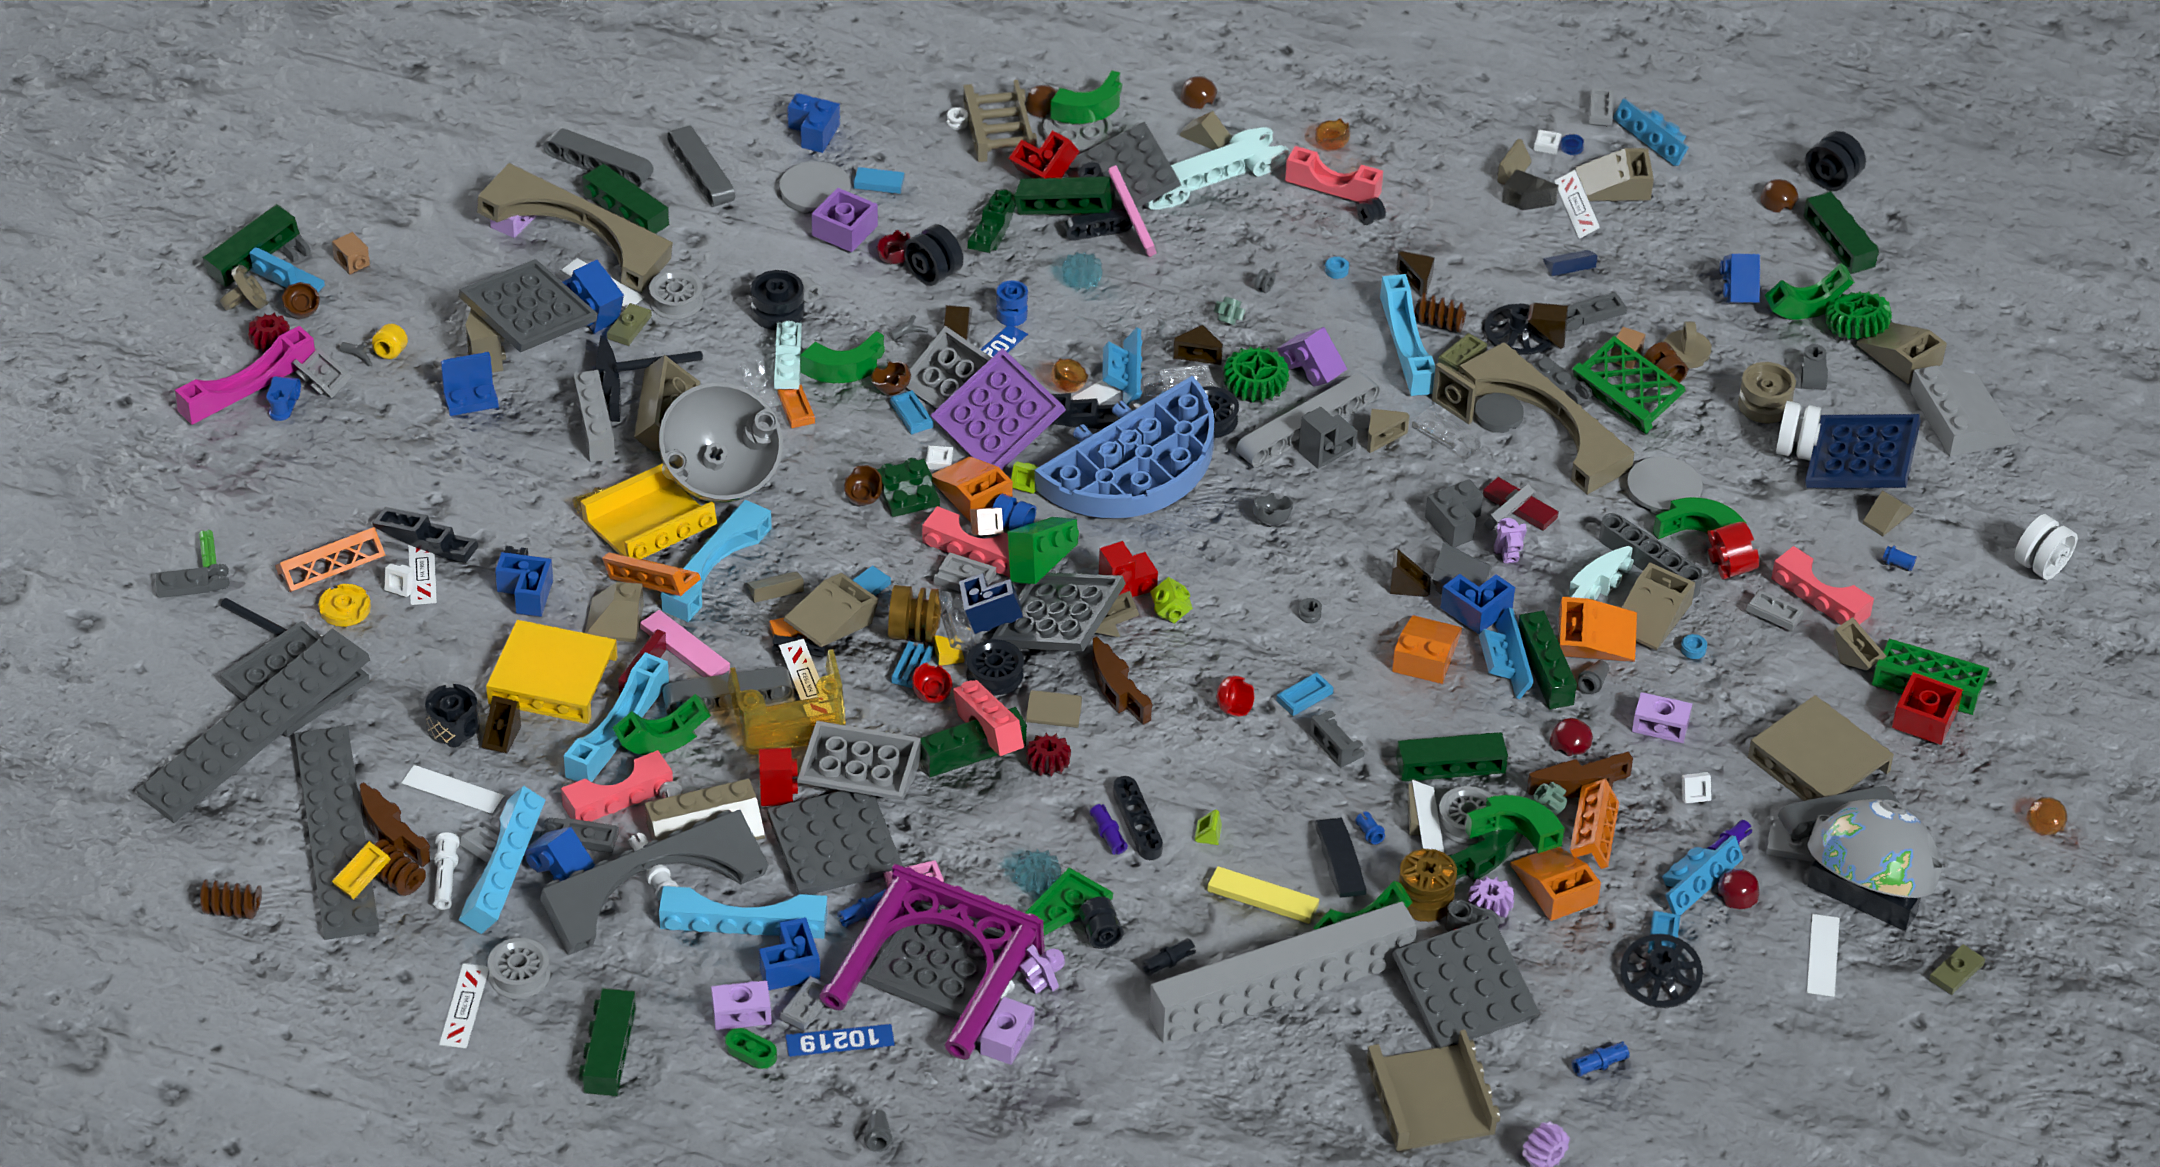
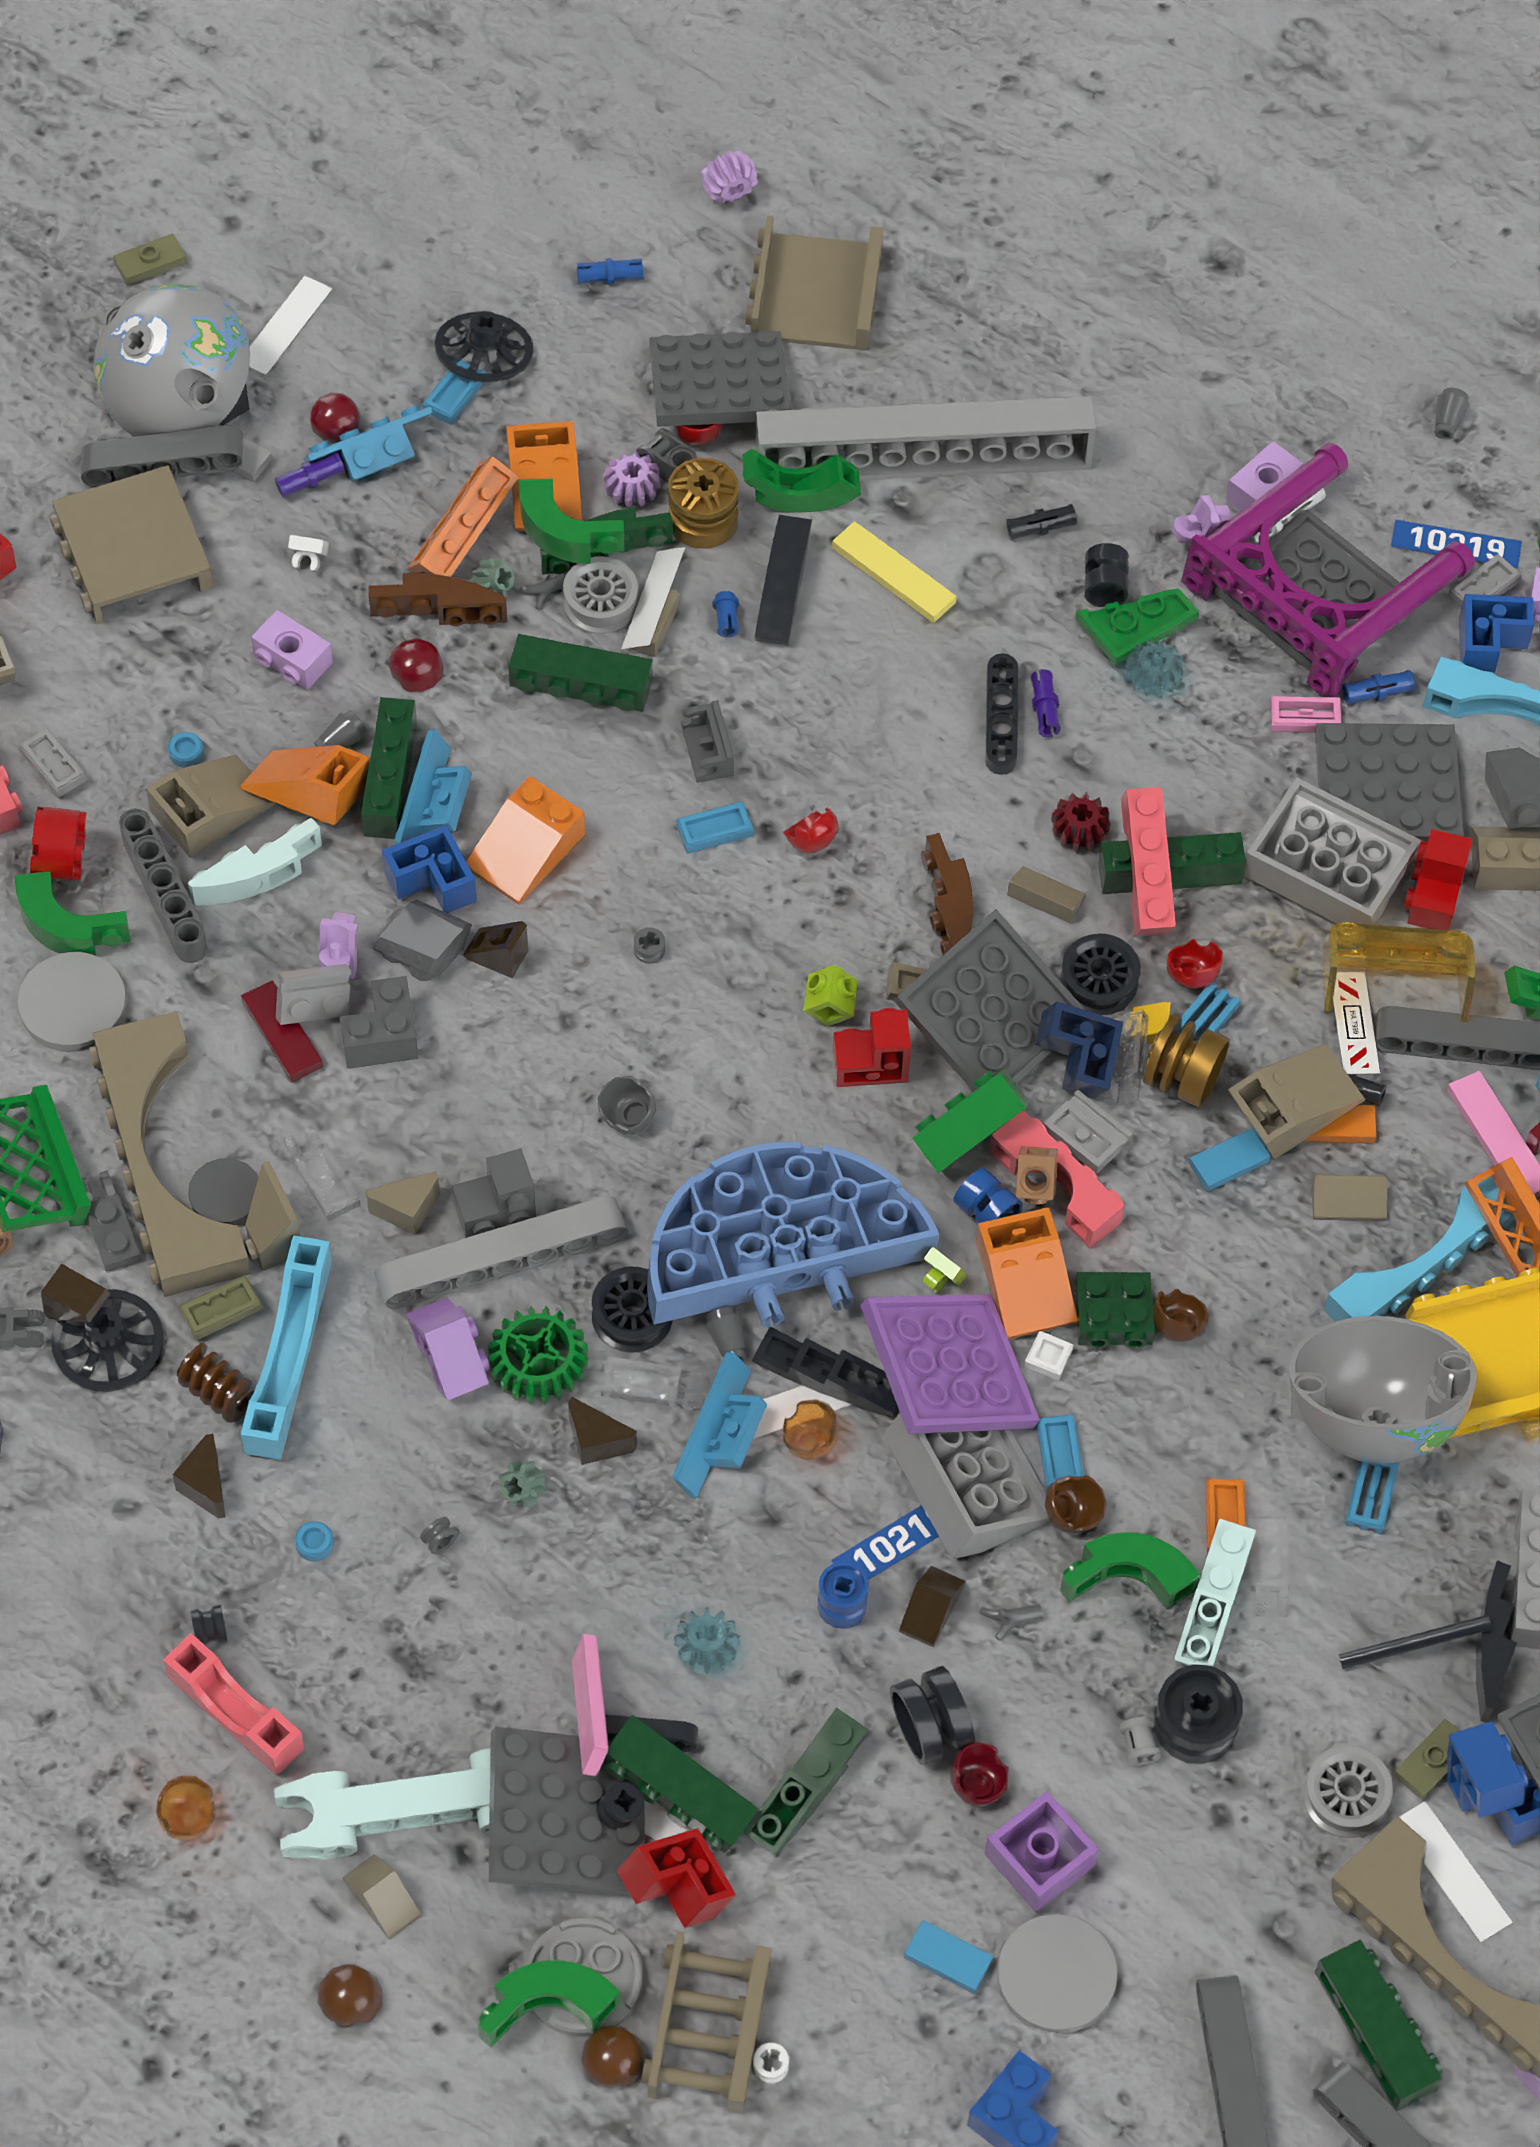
camera: 160 degrees left, 15 degrees up
(660, 387) = (1421, 1554): dark tan slope -> none
(1209, 828) = (921, 673): lime slope -> none

